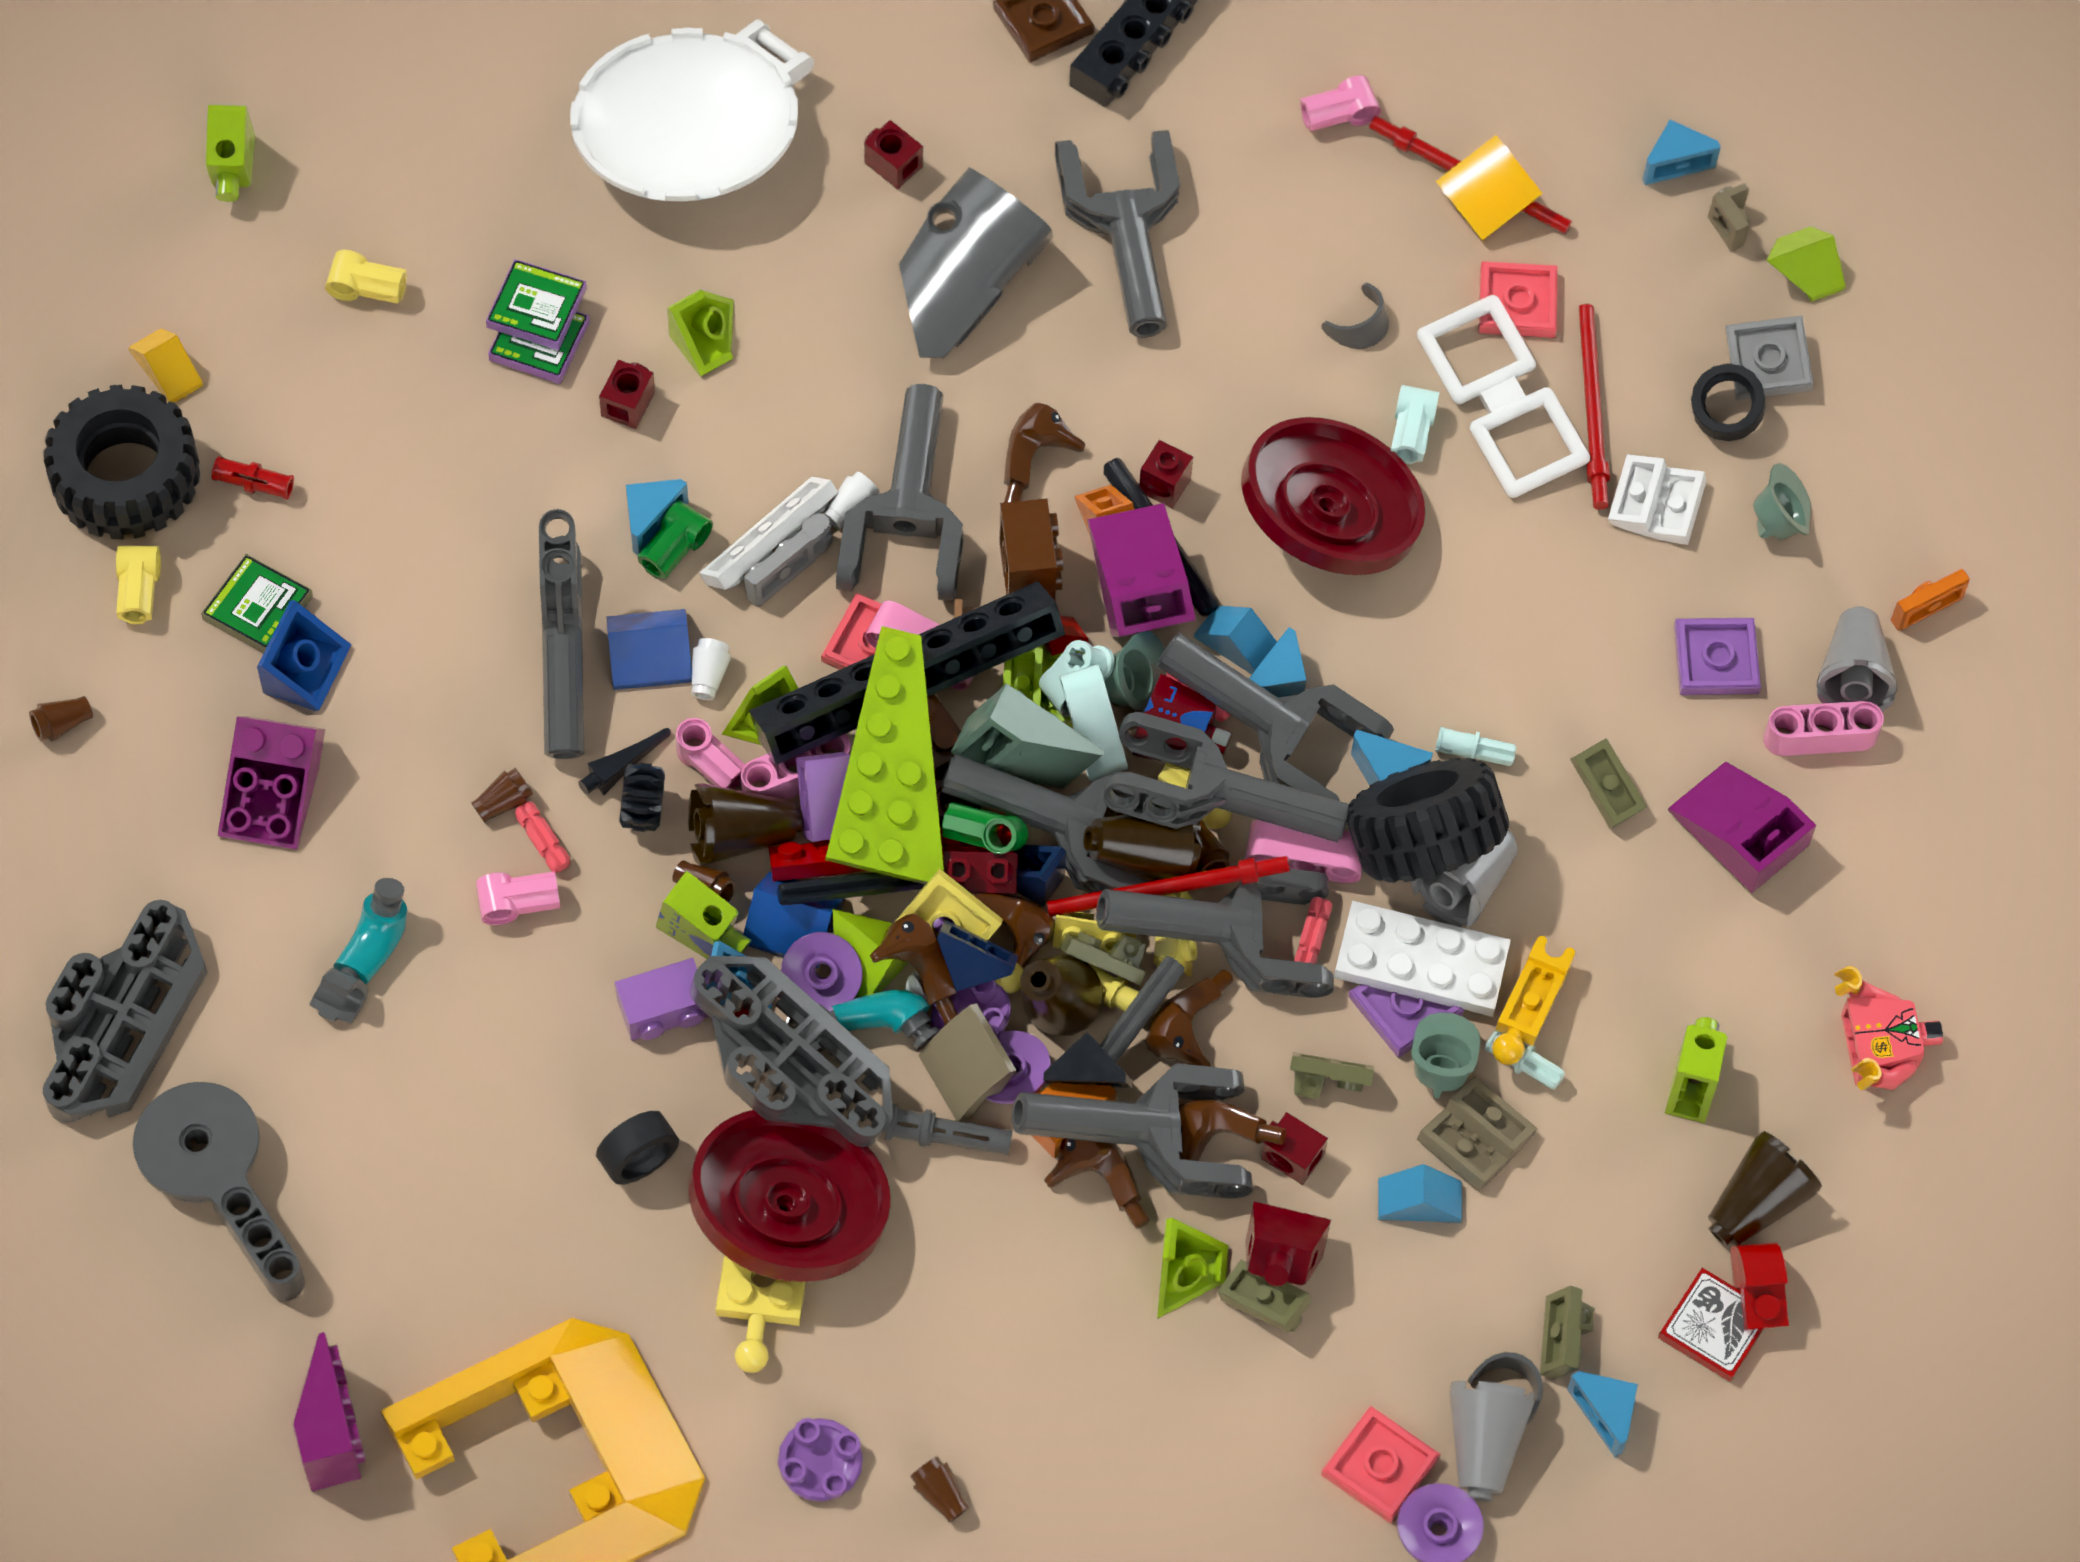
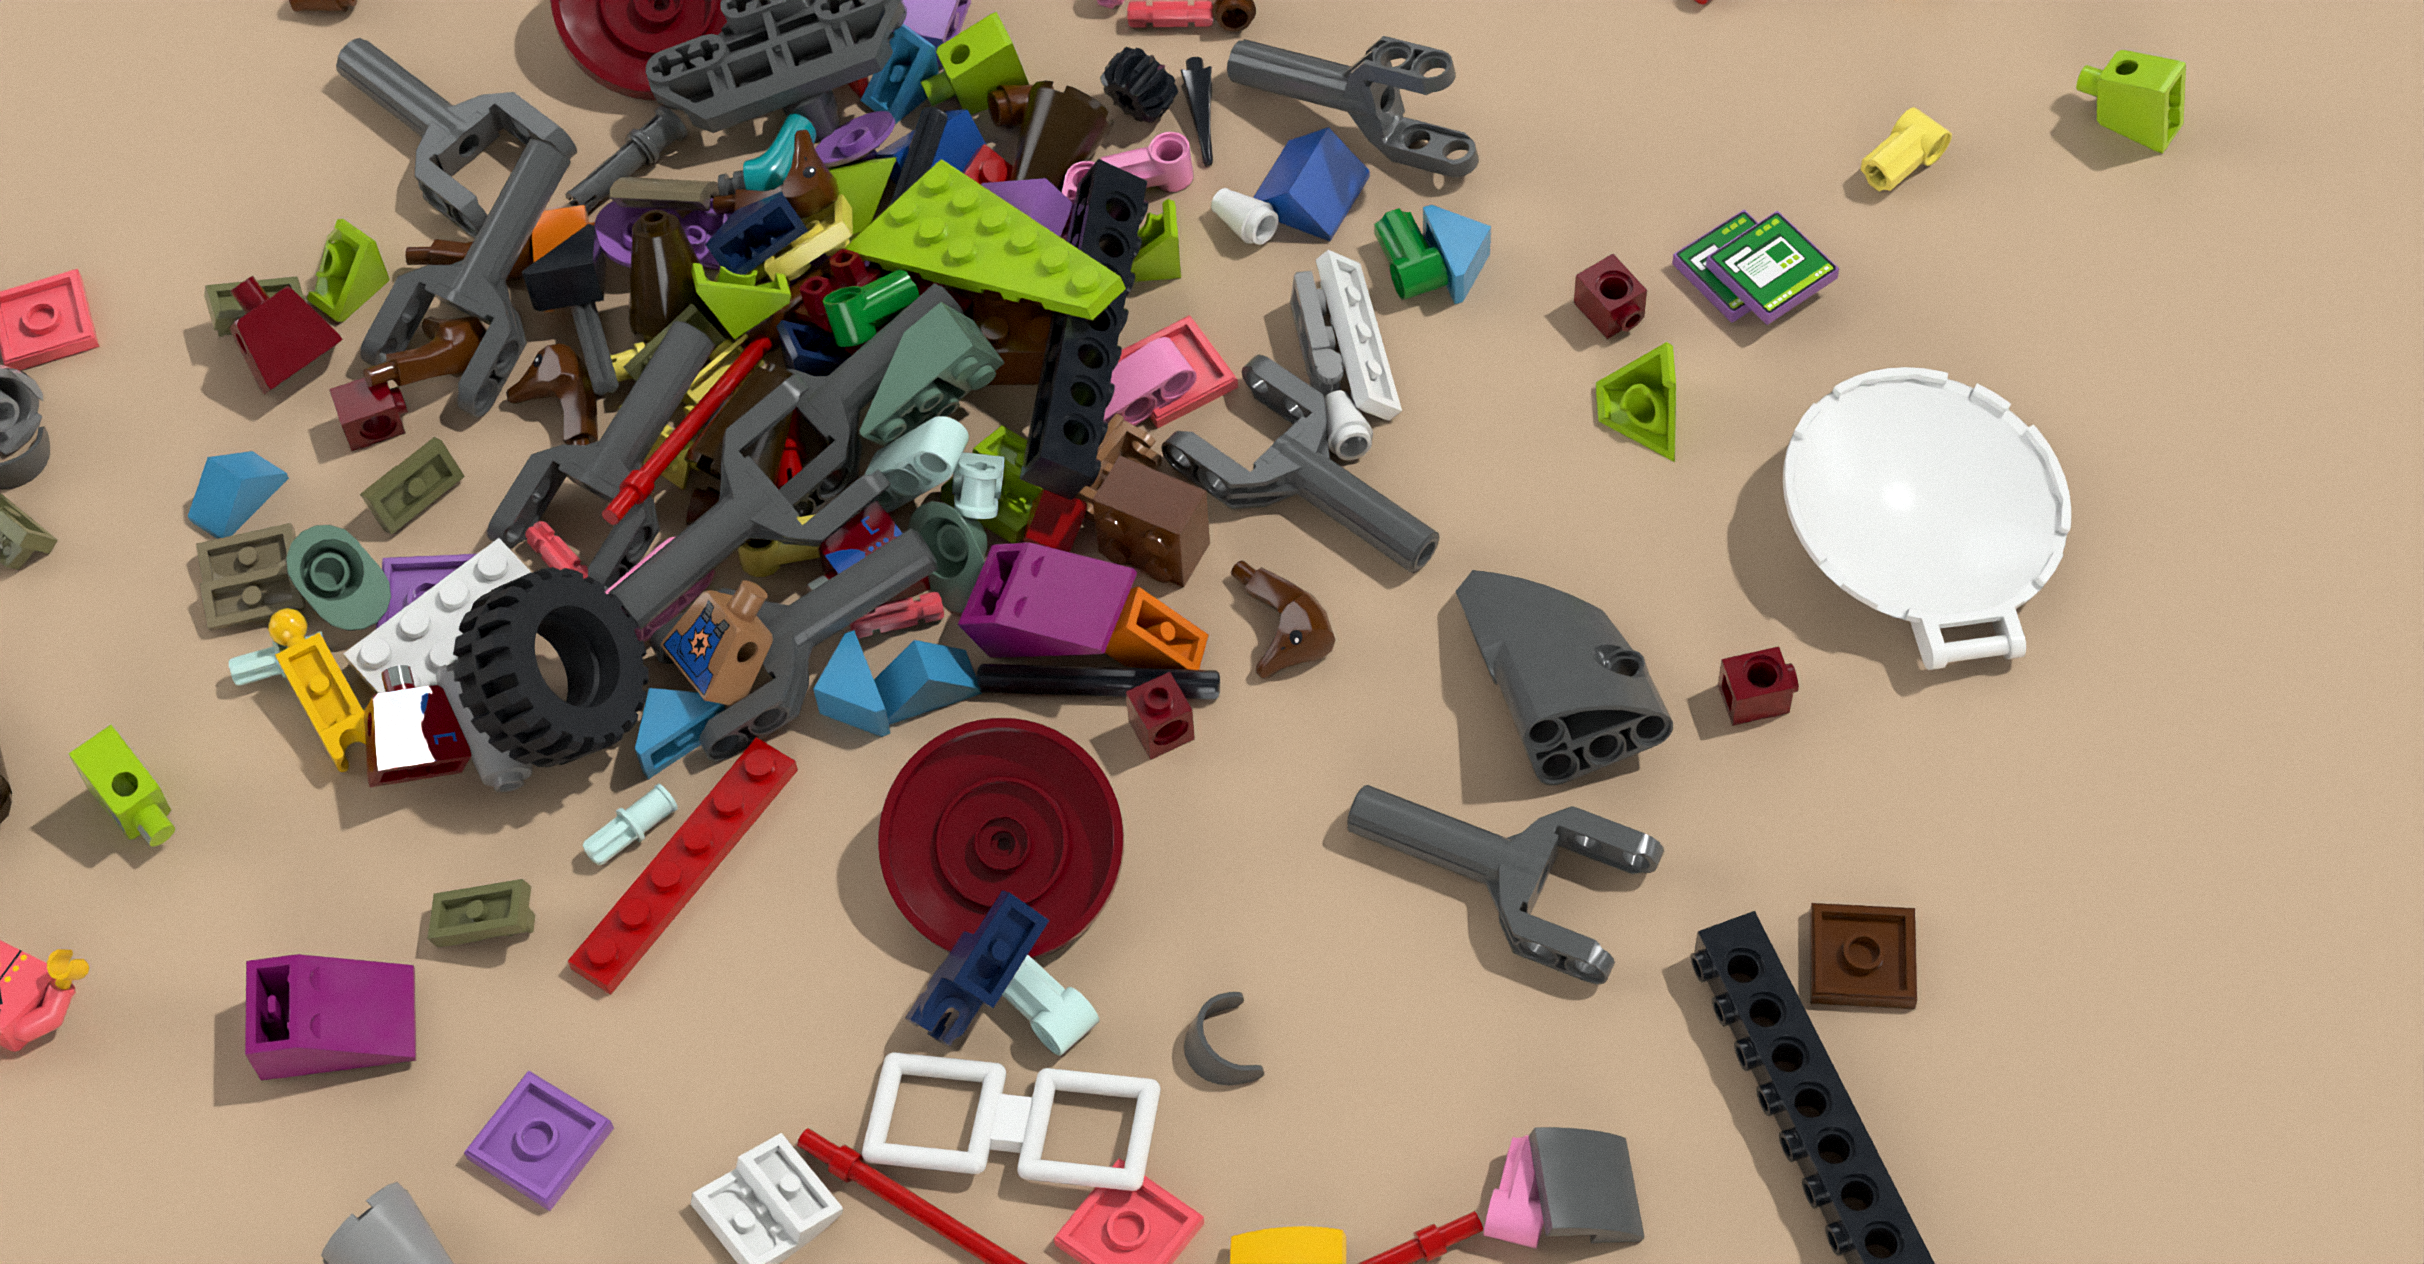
camera: 130 degrees right, 5 degrees down
(1010, 1280) = (448, 132): none -> dark grey piece
(1034, 919) = (737, 299): none -> lime slope
(1314, 71) = (1586, 1184): none -> dark grey slope
(1324, 742) = (721, 643): none -> medium nougat torso
(1434, 455) = (977, 969): none -> dark blue plate
(1478, 699) = (682, 866): none -> red plate
(1526, 907) = (411, 732): none -> dark red torso
(1808, 739) = (363, 1153): bright pink beam -> none

